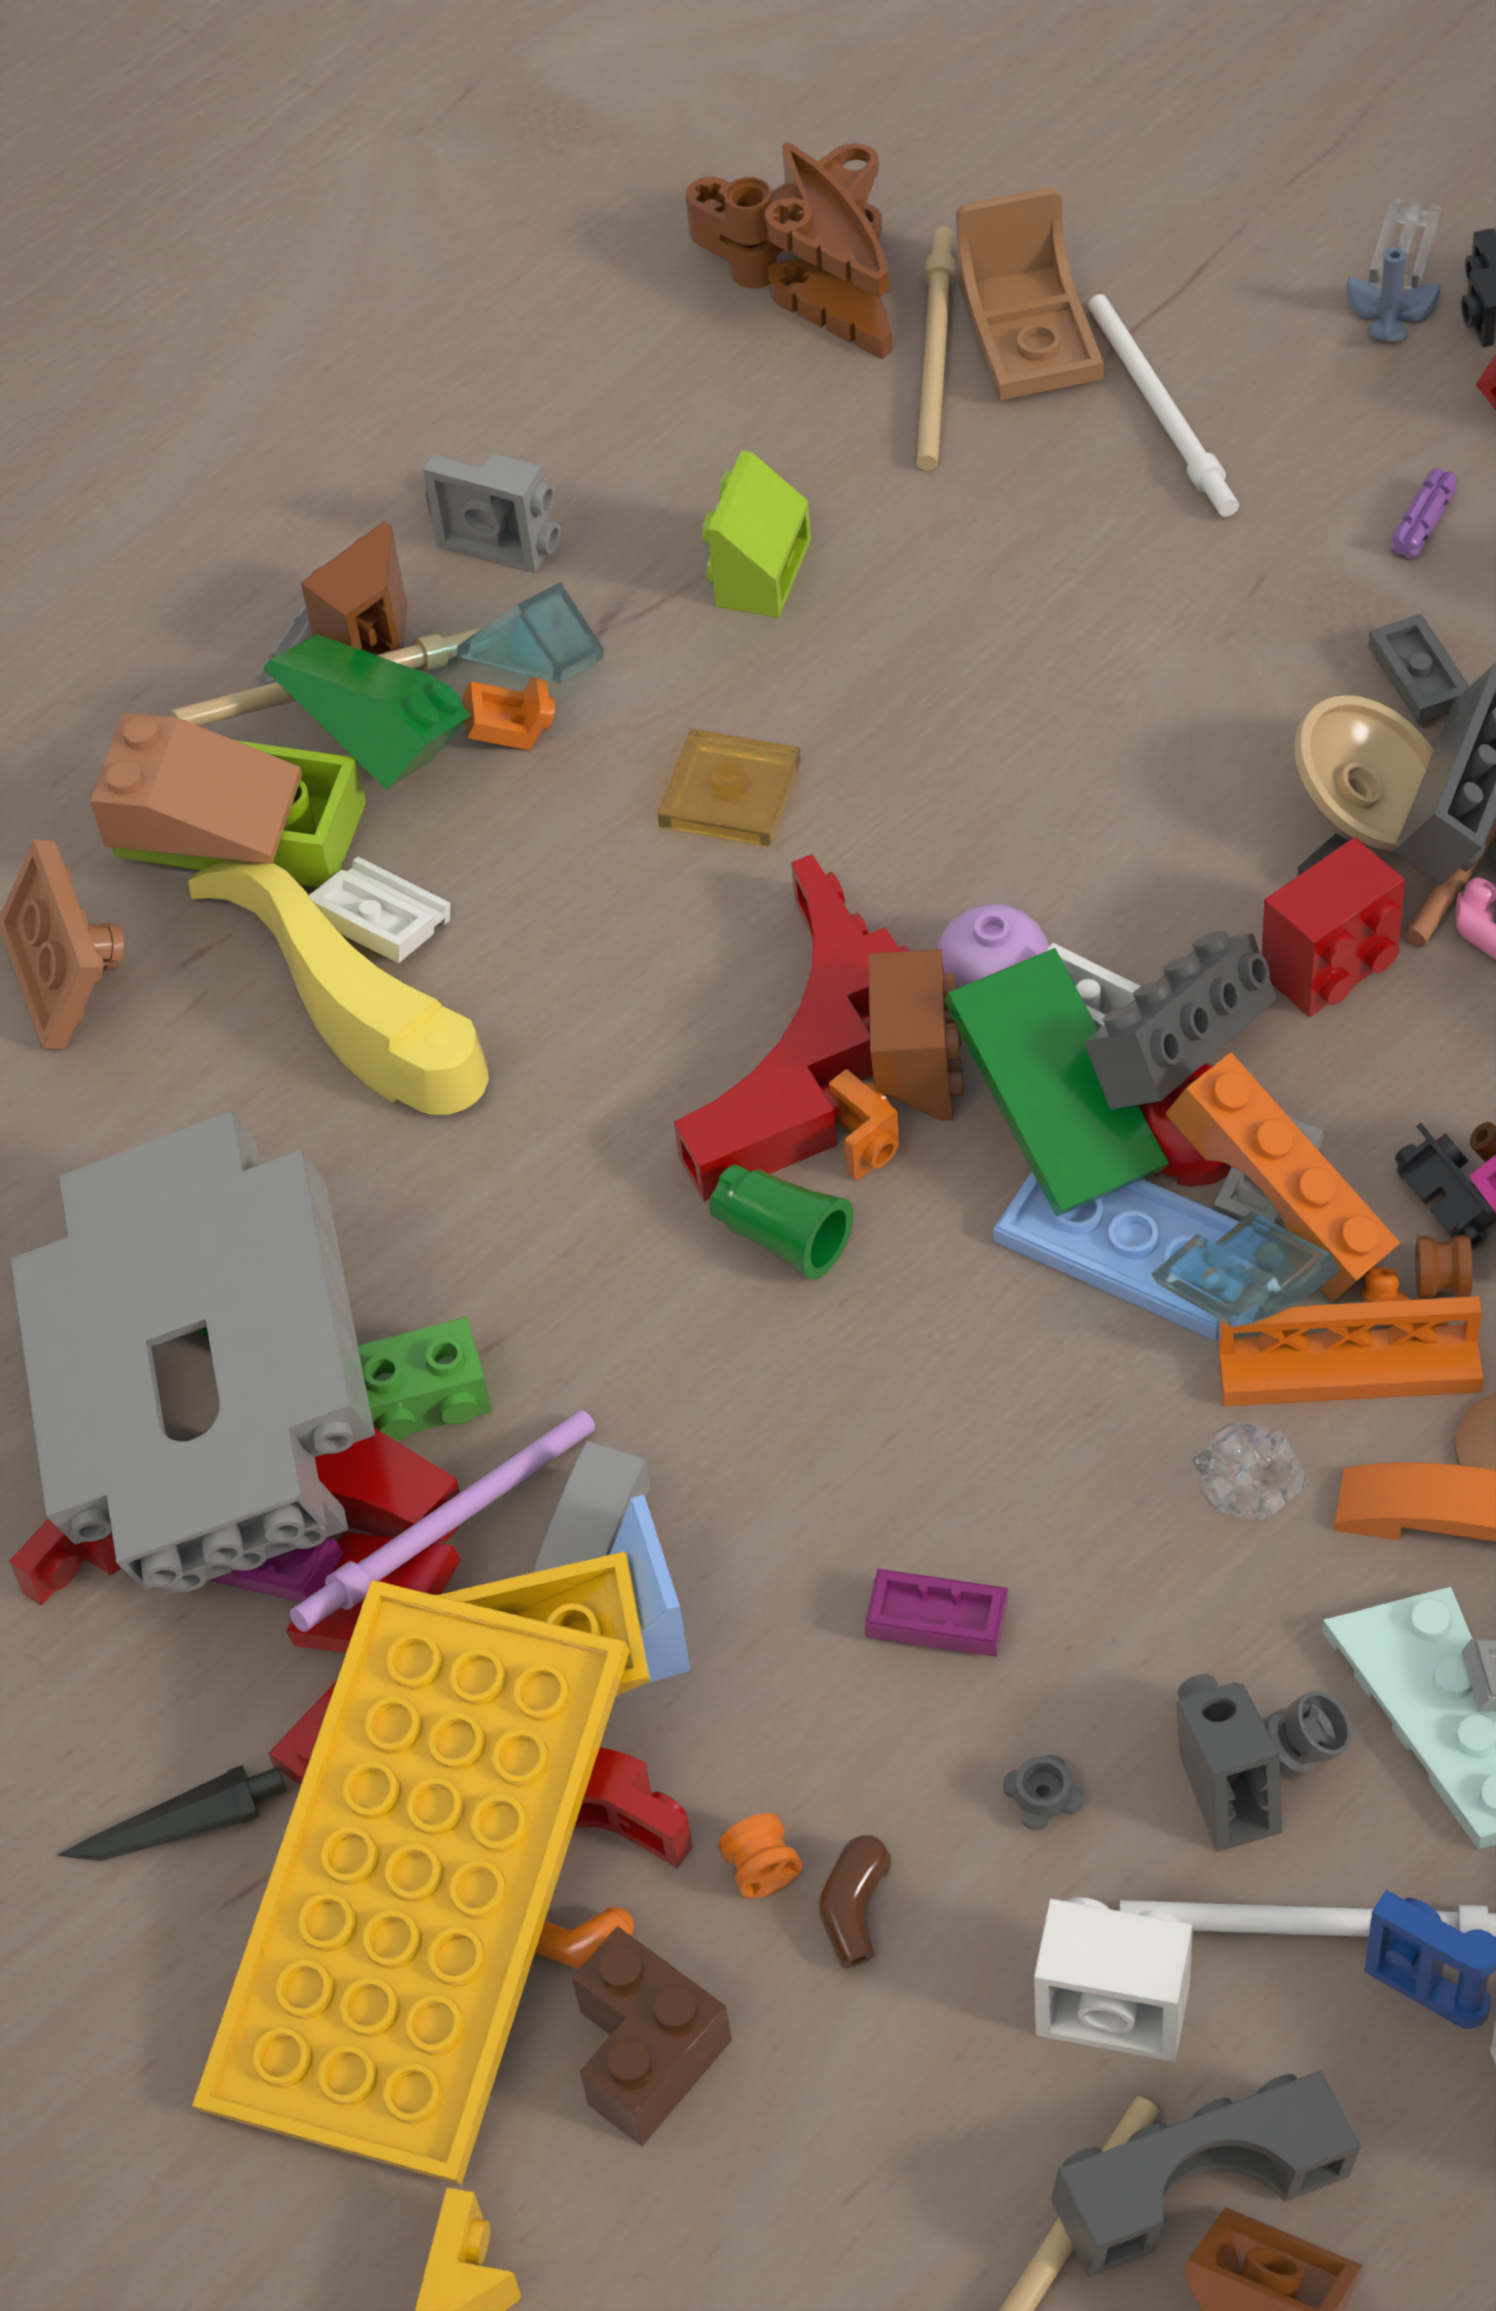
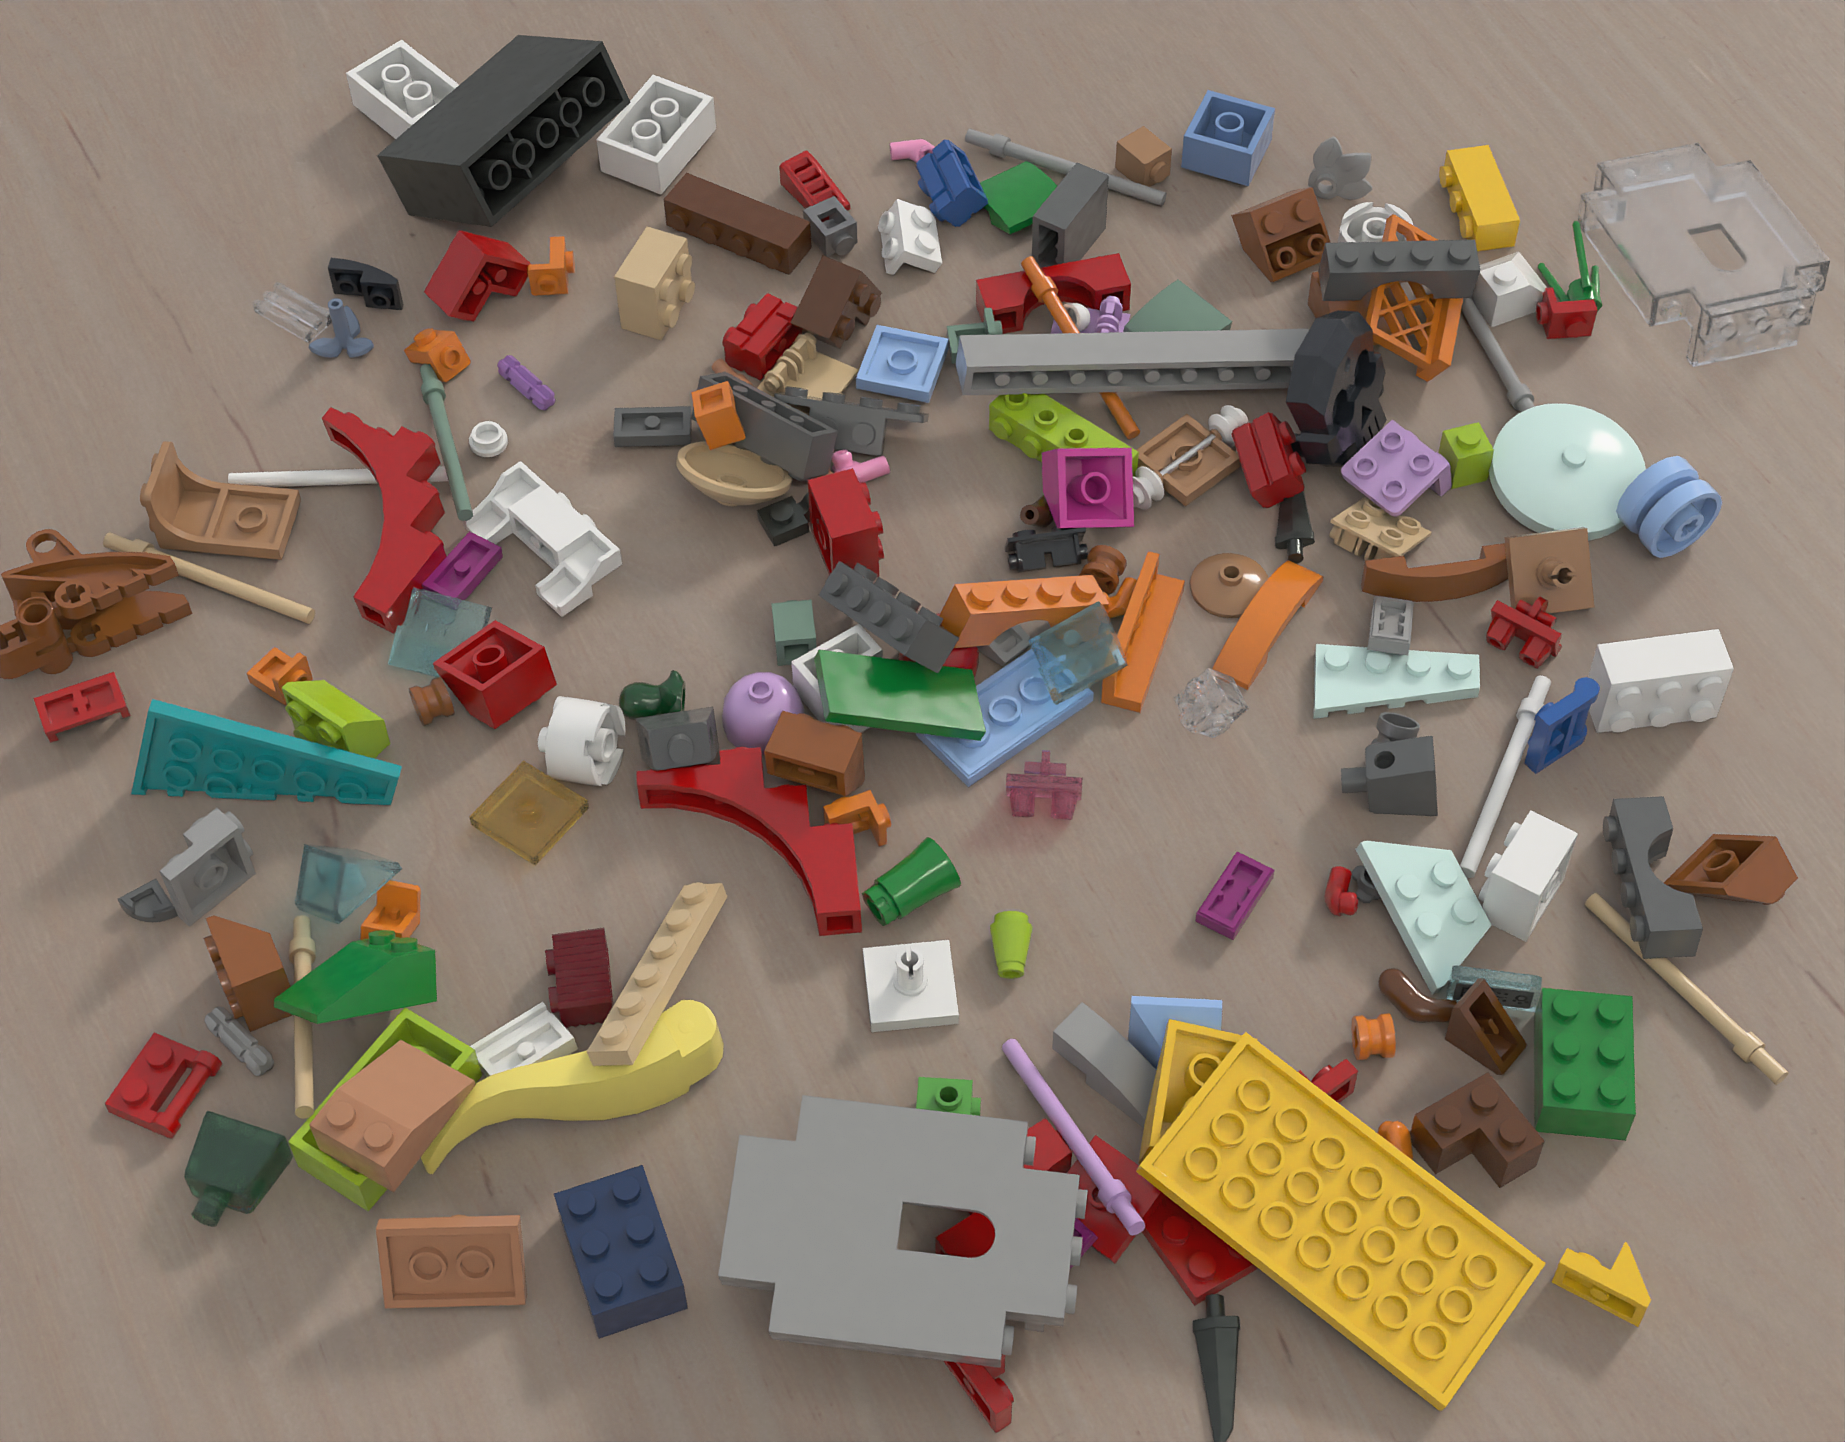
camera: 75 degrees left, 0 degrees up
(107, 687) = (233, 1166): none -> clear green torso
(125, 1092) = (621, 1251): none -> dark blue brick
(212, 608) = (153, 1079): none -> red plate
(498, 926) = (582, 977): none -> dark red brick
(506, 983) = (657, 975): none -> tan plate
(635, 1279) = (910, 986): none -> white tile
(653, 489) = (242, 761): none -> teal wing
(678, 313) = (80, 704): none -> red hinge
(739, 1365) = (1011, 942): none -> lime cone
(815, 467) = (276, 670): none -> orange bracket
(819, 2153) = (1584, 1064): none -> green brick
(829, 2001) = (1484, 1029): none -> reddish brown slope
(837, 785) = (583, 741): none -> white brick
(843, 622) = (431, 701): none -> dark orange wheel
(890, 882) = (678, 738): none -> dark grey torso
(907, 663) = (496, 673): none -> red slope
(909, 1997) = (1512, 989): none -> clear light blue tile
(952, 593) = (434, 628): none -> clear light blue slope
(952, 842) = (646, 699): none -> dark green animal
(982, 1747) = (1336, 894): none -> red arm
(1018, 1313) = (1062, 790): none -> clear pink hips
(1028, 1847) = (1427, 904): none -> light aqua wing
(1052, 503) = (410, 511): none -> red arch
(1067, 572) = (464, 567): none -> magenta plate
(1140, 940) = (793, 630): none -> sand green brick
(1167, 632) = (552, 530): none -> white bracket
(1300, 512) = (488, 439): none -> white plate
(1343, 431) = (434, 396): none -> sand green bar
(1415, 406) = (441, 350): none -> orange bracket
(1428, 701) = (717, 415): none -> orange panel

